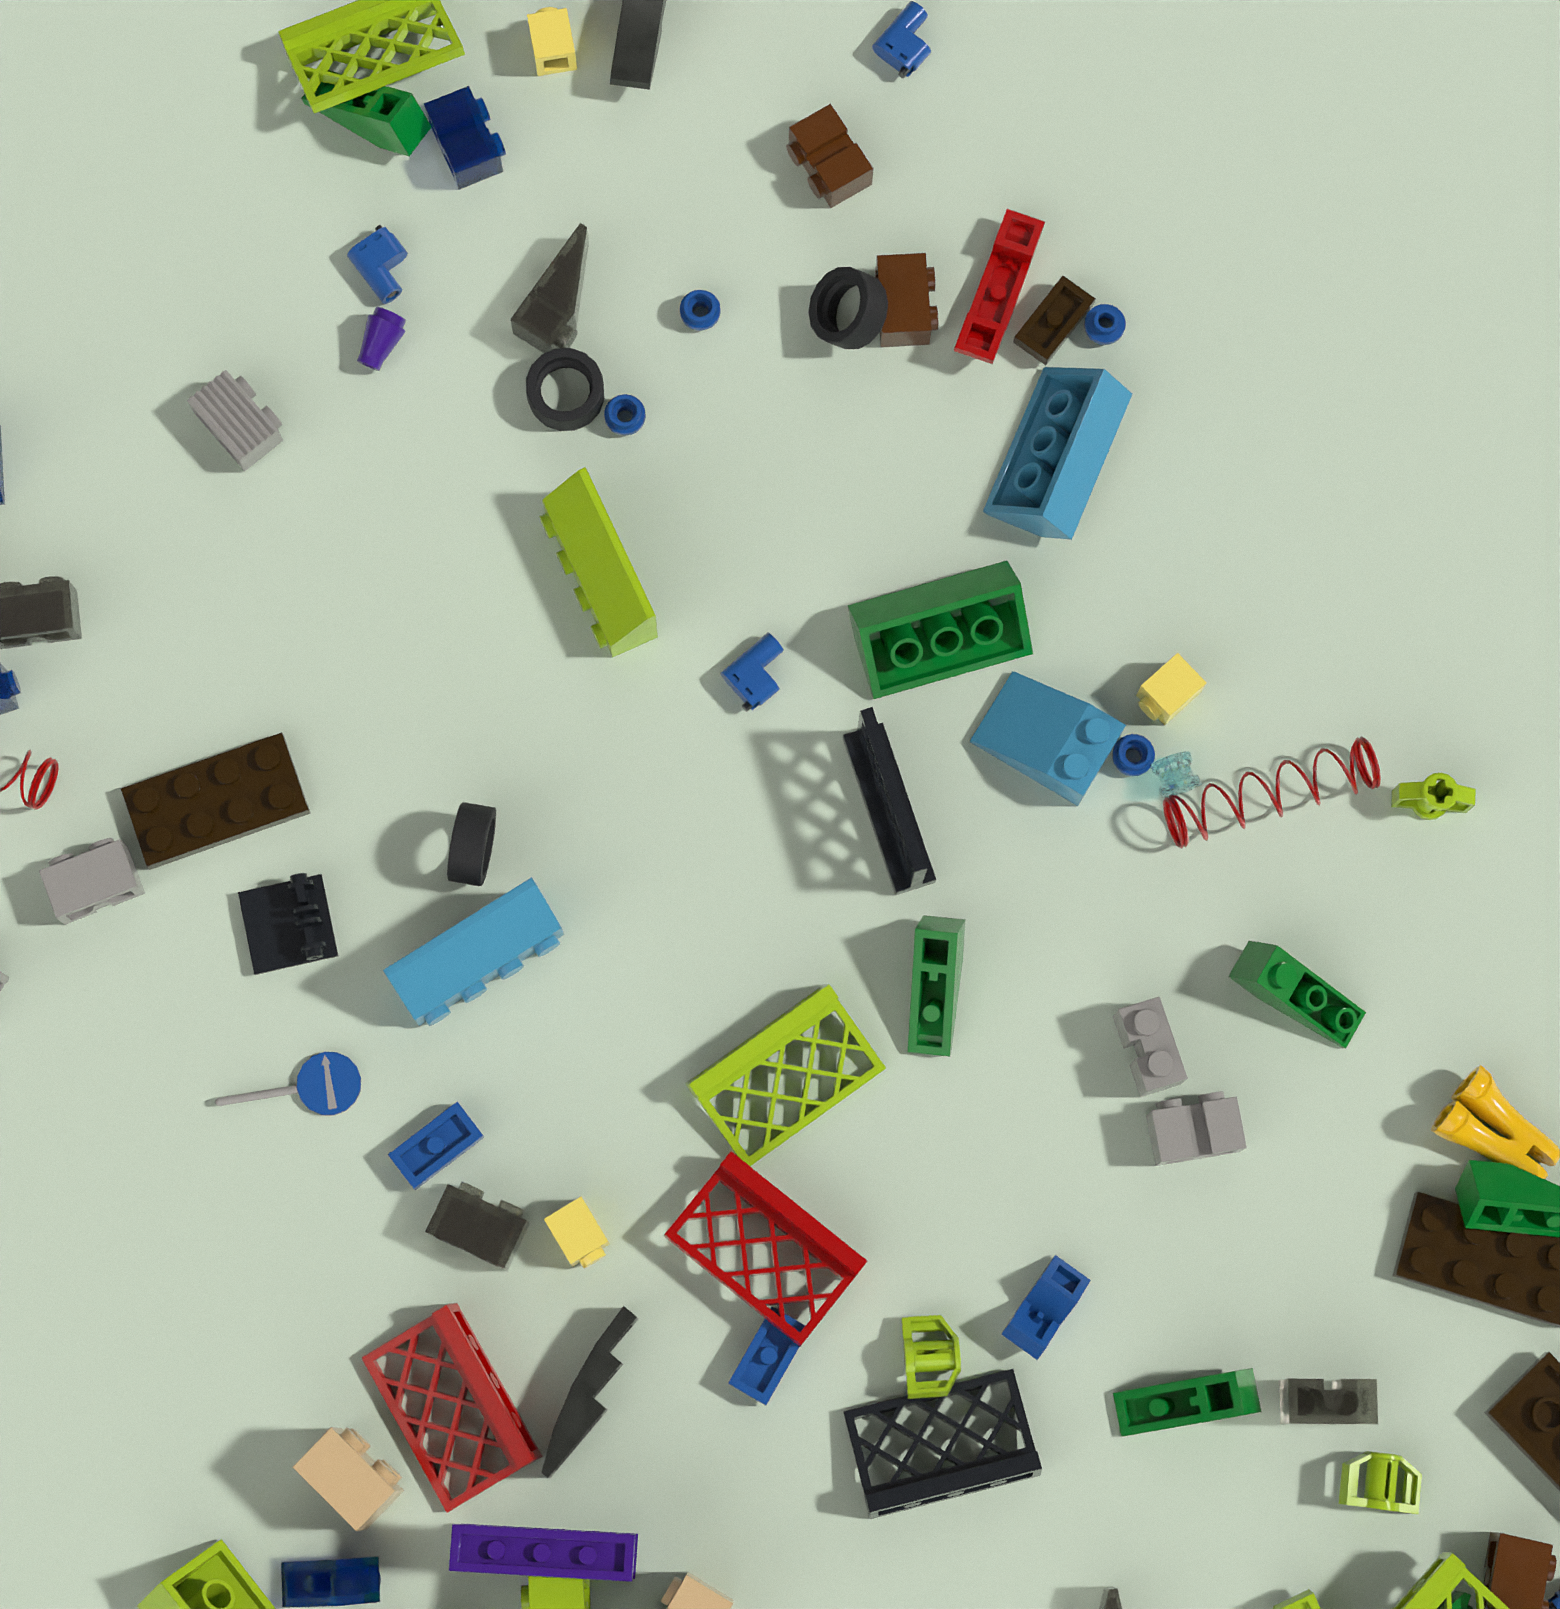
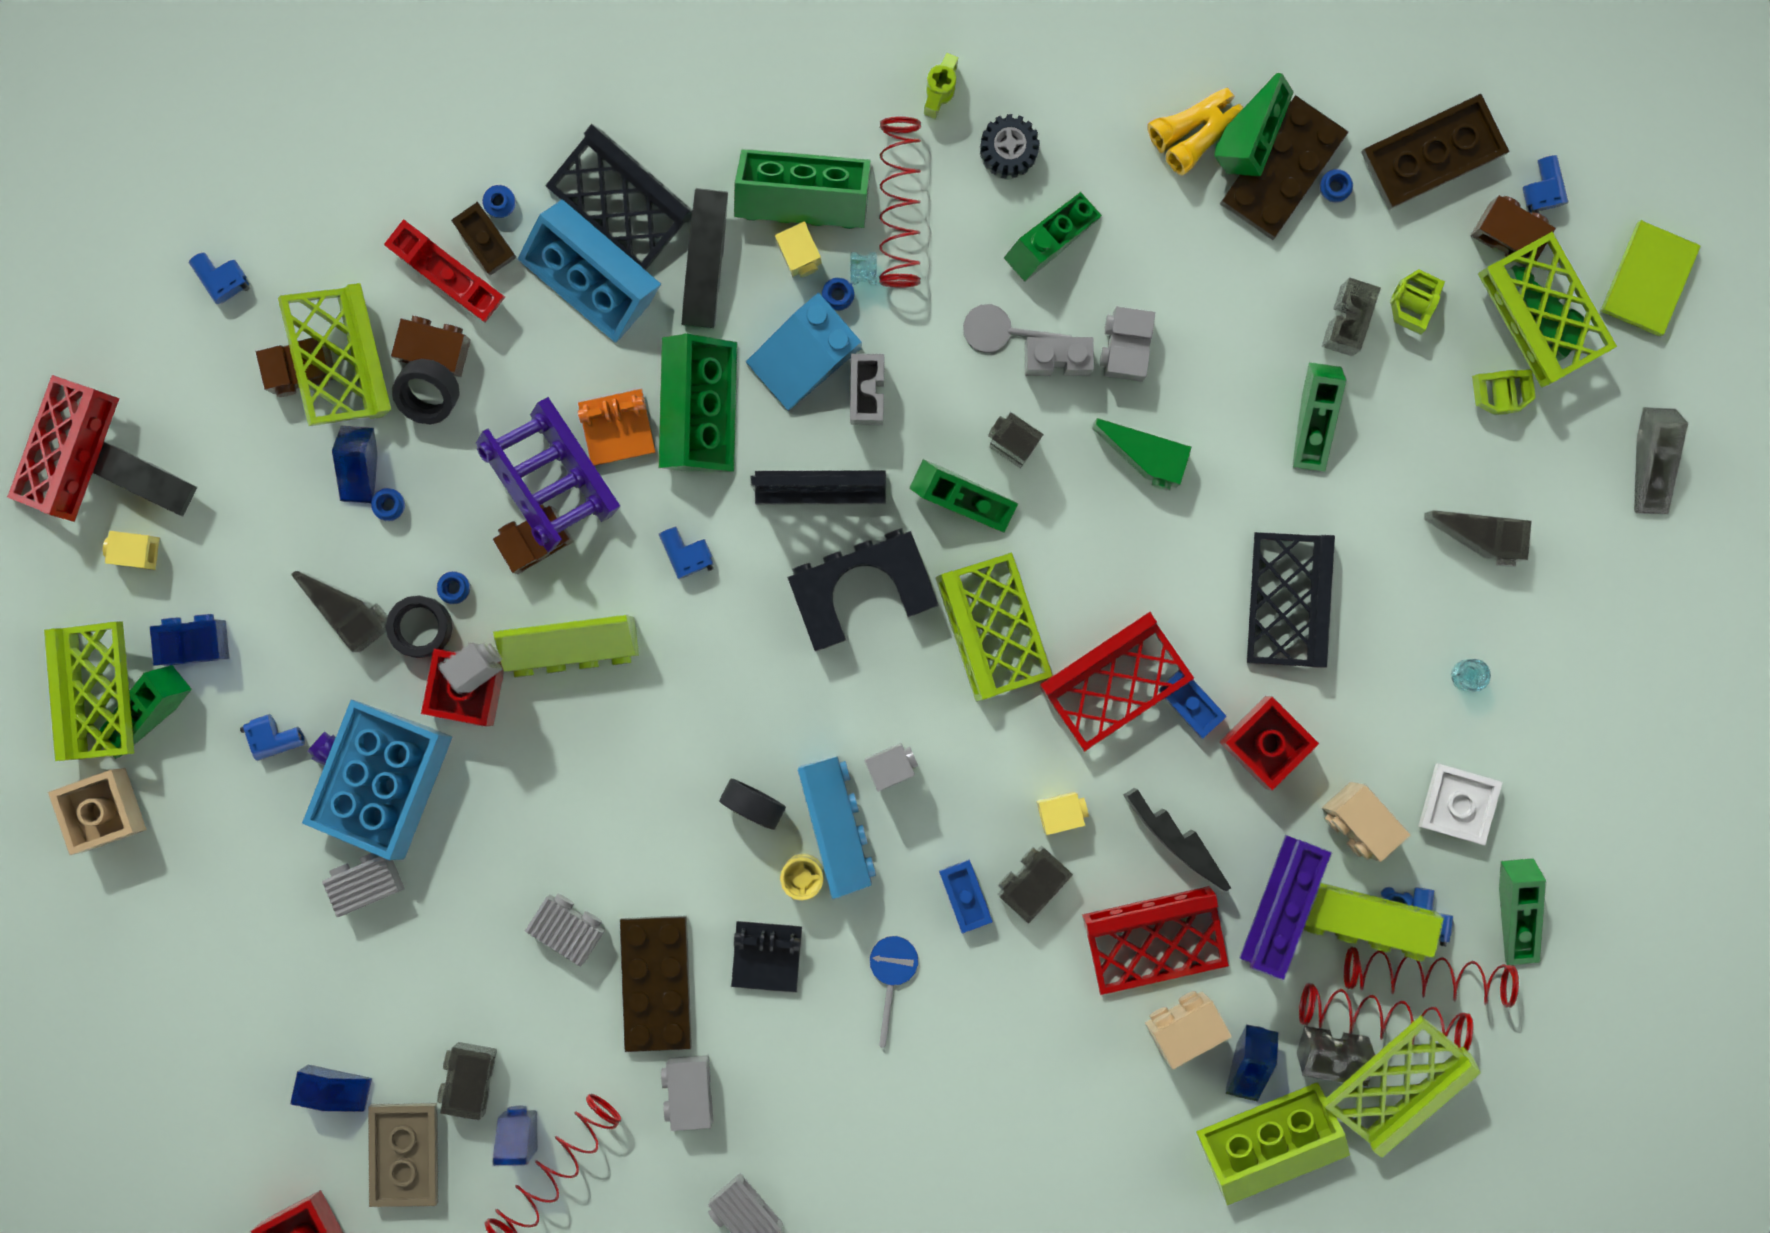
camera: 70 degrees left, 10 degrees up
(233, 95) = (97, 811): none -> tan brick
(251, 672) = (566, 929): none -> light grey brick
(365, 397) = (377, 780): none -> dark azure slope
(398, 930) = (802, 877): none -> light yellow wheel
(507, 460) = (444, 702): none -> red brick
(534, 453) = (471, 666): none -> light grey brick
(570, 997) = (891, 766): none -> light grey brick
(712, 487) = (521, 548): none -> reddish brown brick
(736, 257) = (355, 463): none -> clear blue slope
(749, 1469) = (1269, 743): none -> red brick
(763, 840) = (894, 556): none -> black arch
(833, 486) = (563, 448): none -> dark purple fence
(874, 222) = (362, 349): none -> lime fence
(880, 543) = (616, 427): none -> orange hinge
(929, 1356) = (1220, 598): lime piece -> none
(1012, 824) = (865, 404): none -> light grey brick
(1026, 1021) = (1014, 439): none -> clear smoke brick
(1046, 1307) = (1219, 495): blue slope -> none
(1065, 1207) = (1150, 455): none -> green slope
(1121, 581) = (704, 258): none -> pearl dark grey slope
(1156, 954) = (989, 329): none -> light grey piece
(1194, 464) = (634, 173): none -> black fence
(1246, 670) = (801, 188): none -> green slope
(1402, 896) = (1009, 134): none -> black wheel
(1501, 1327) = (1343, 179): none -> blue plate

